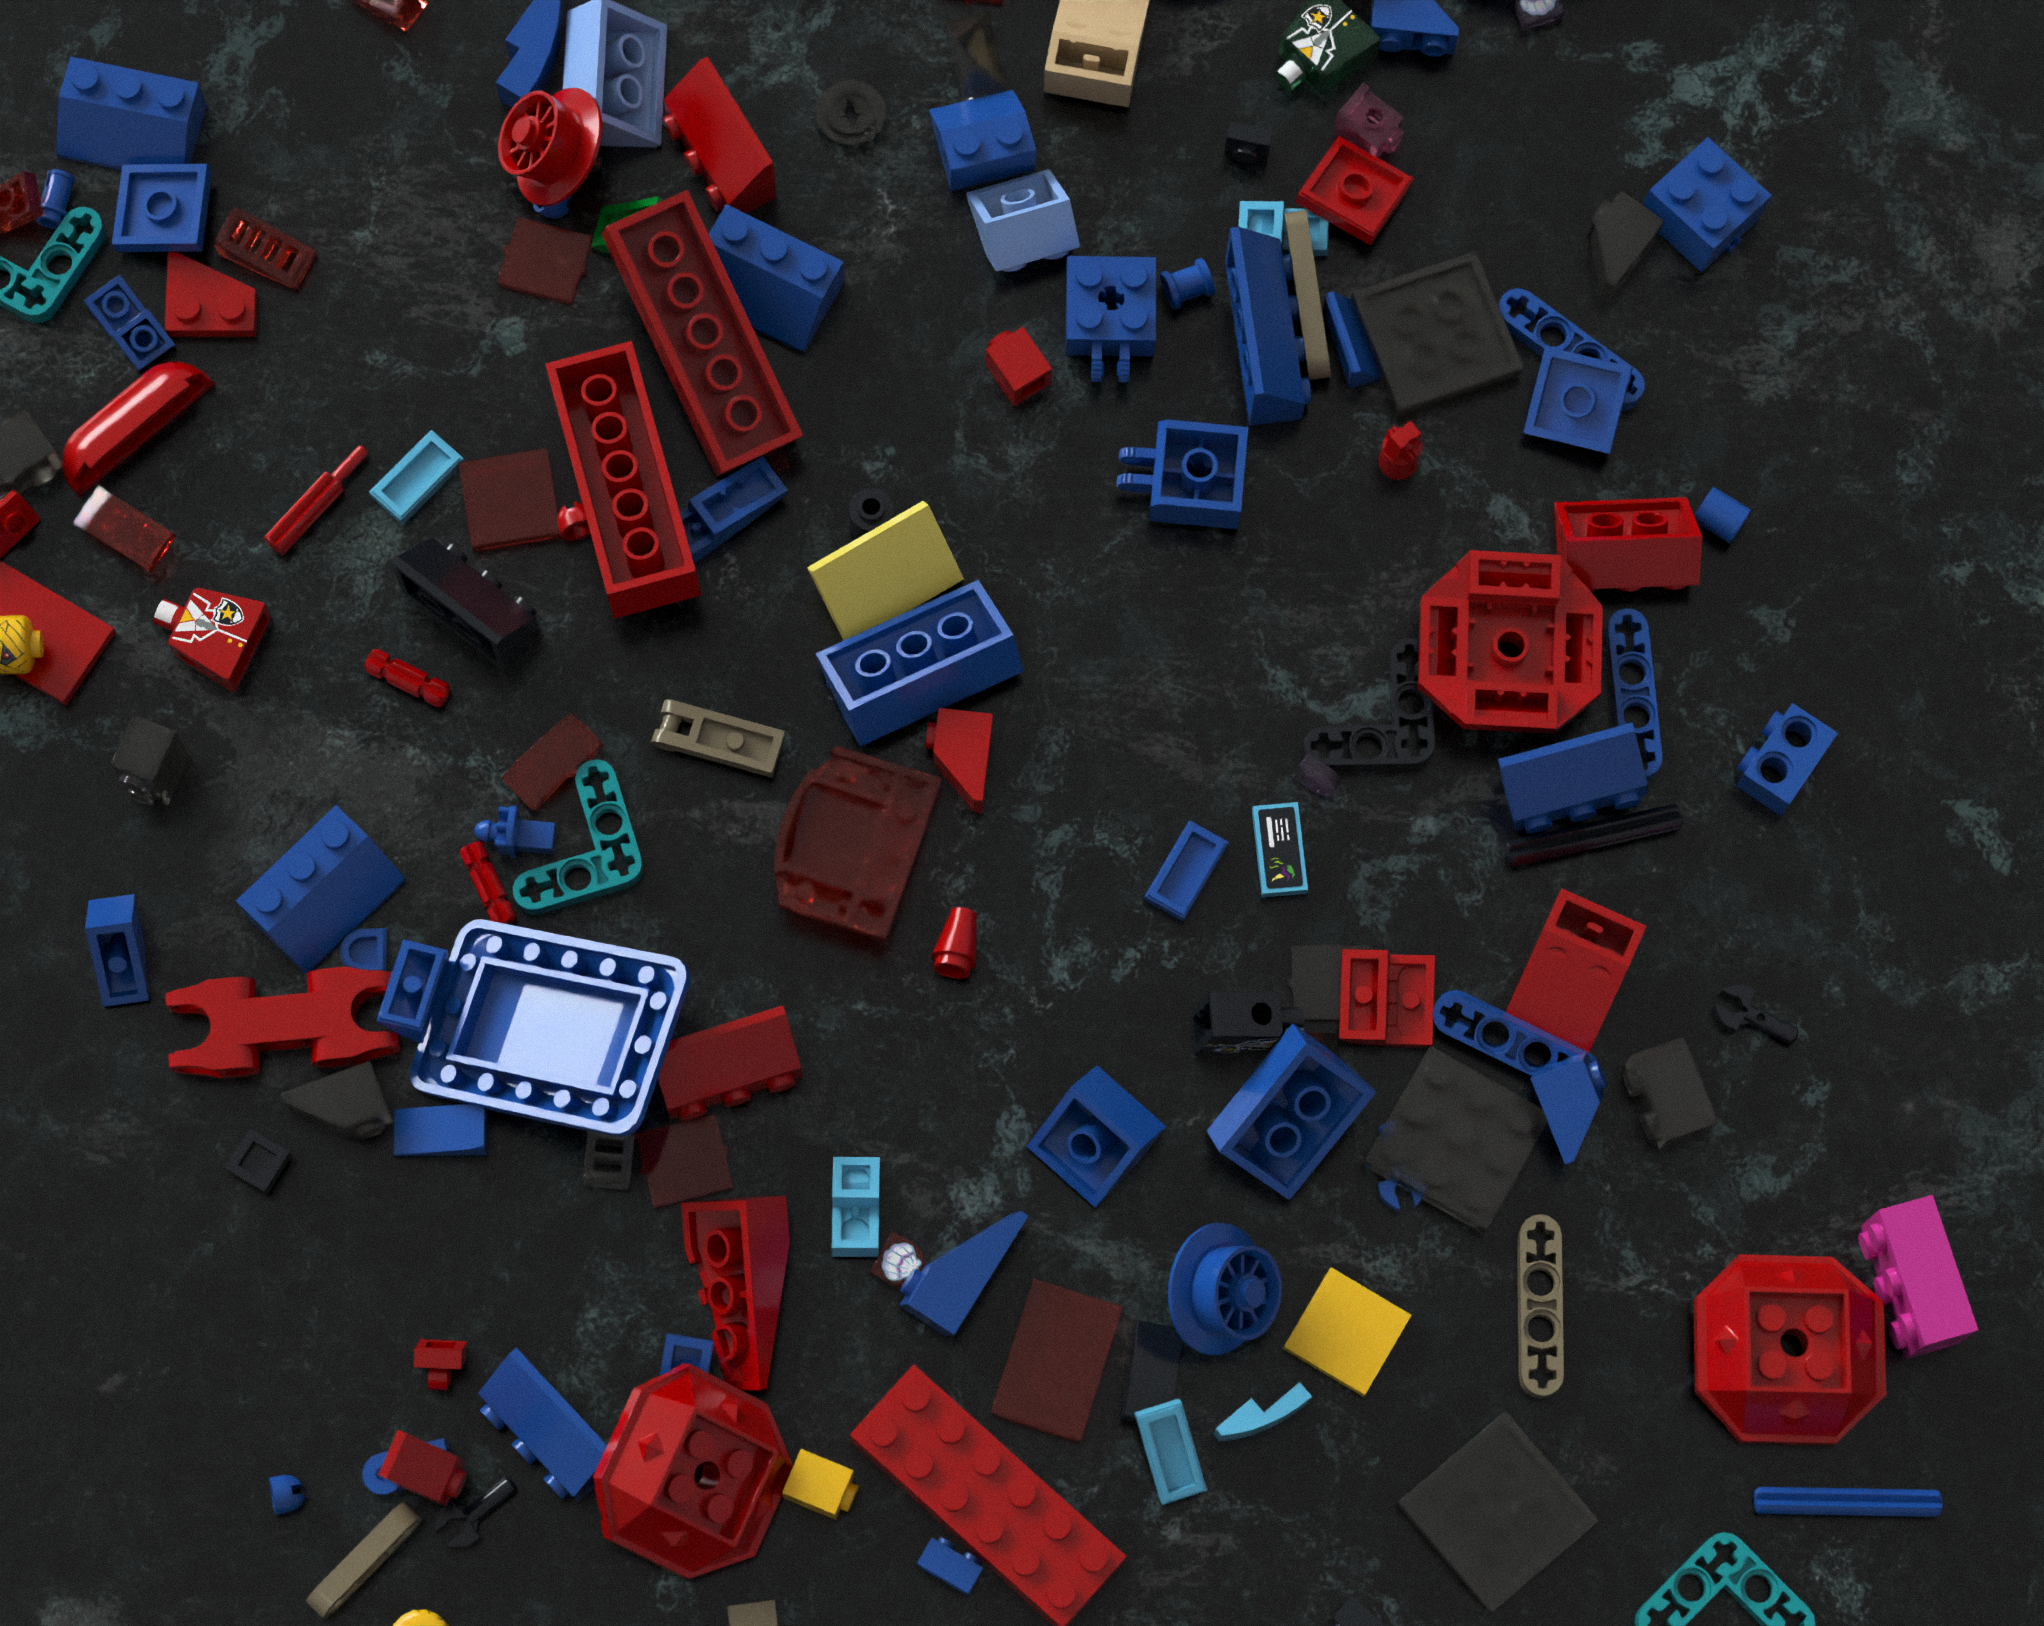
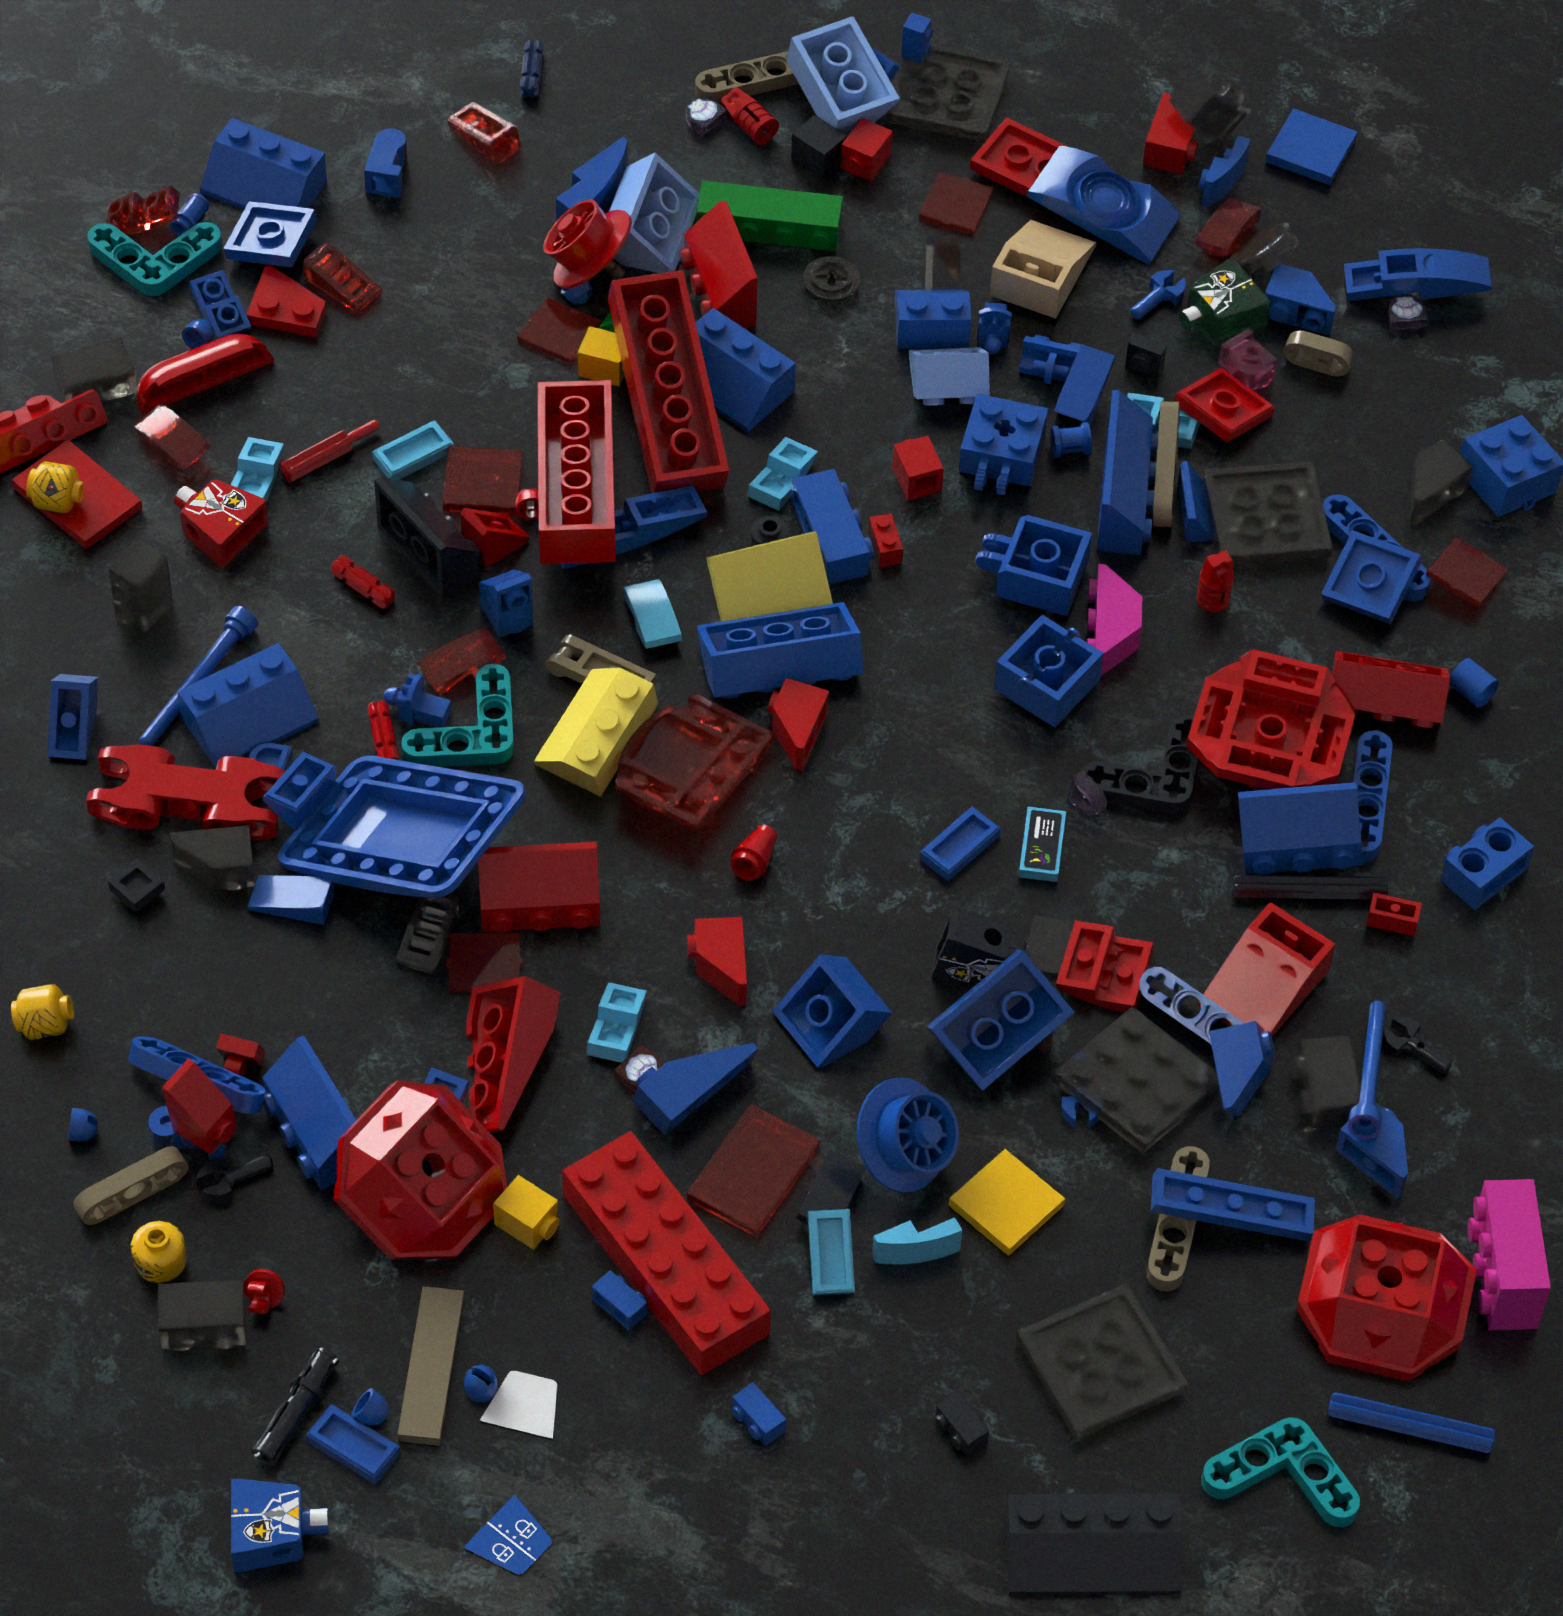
camera: 15 degrees right, 20 degrees down
(115, 372) = (198, 333): none -> blue hinge
(198, 1360) = (42, 1012): none -> yellow head
(238, 551) = (258, 466): none -> medium azure slope
(271, 59) = (385, 164): none -> blue leg
(277, 777) = (238, 625): none -> blue piece
(348, 1384) = (165, 1059): none -> blue beam
(543, 577) = (492, 533): none -> red slope
(586, 672) = (508, 602): none -> blue slope
(605, 294) = (600, 357): none -> yellow brick
(734, 824) = (597, 728): none -> light yellow slope
(758, 40) = (777, 214): none -> green brick
(758, 643) = (652, 613): none -> medium azure slope
(860, 407) = (784, 463): none -> medium azure slope
(937, 471) = (824, 508): none -> blue brick
(953, 1094) = (720, 955): none -> red slope
(1003, 474) = (885, 540): none -> red piece
(1060, 140) = (994, 327): none -> blue piece
(1142, 174) = (1047, 358): none -> blue hips
(1188, 206) = (1085, 384): none -> blue slope
(1237, 621) = (1048, 670): none -> blue brick
(1242, 43) = (1170, 293): none -> blue bar
(1294, 527) = (1115, 617): none -> dark pink slope
(1449, 90) = (1318, 353): none -> dark tan beam
(1600, 1284) = (1232, 1204): none -> blue plate
(1682, 361) = (1466, 572): none -> clear red piece
(1696, 852) = (1394, 914): none -> red piece
(1727, 1150) = (1365, 1117): none -> blue piece
(1742, 1164) = (1380, 1157): none -> blue slope

